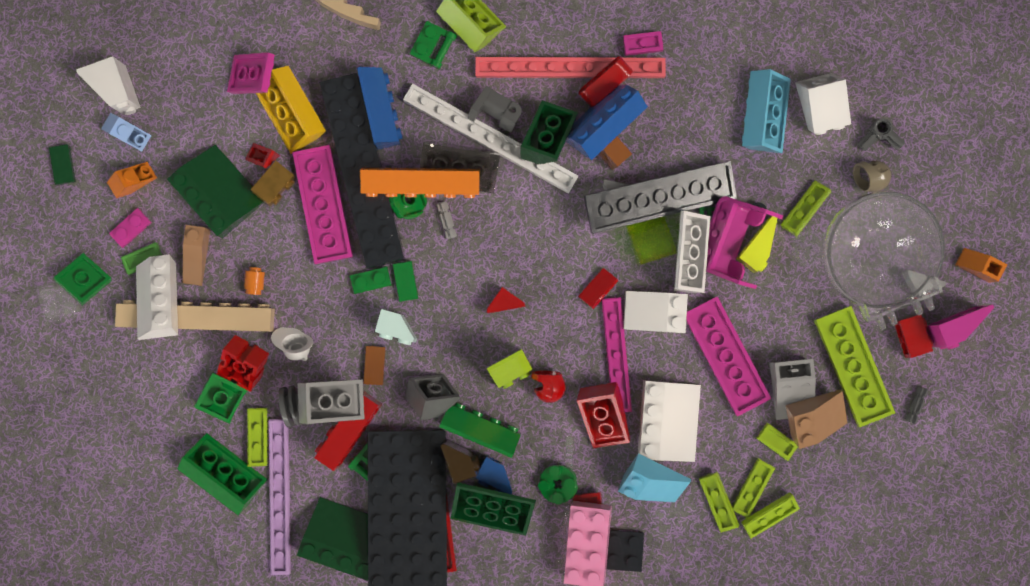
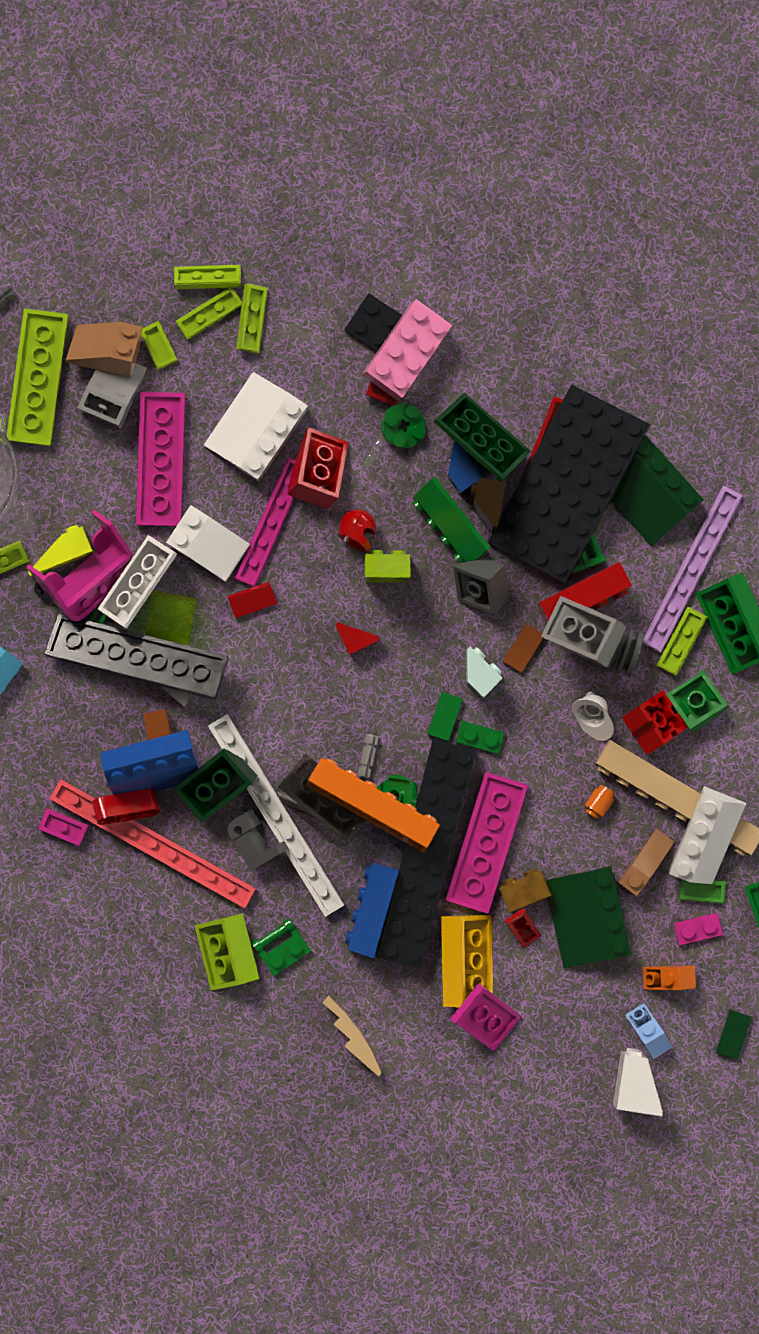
camera: 150 degrees left, 0 degrees up
(652, 481) = (307, 375): medium azure slope -> none

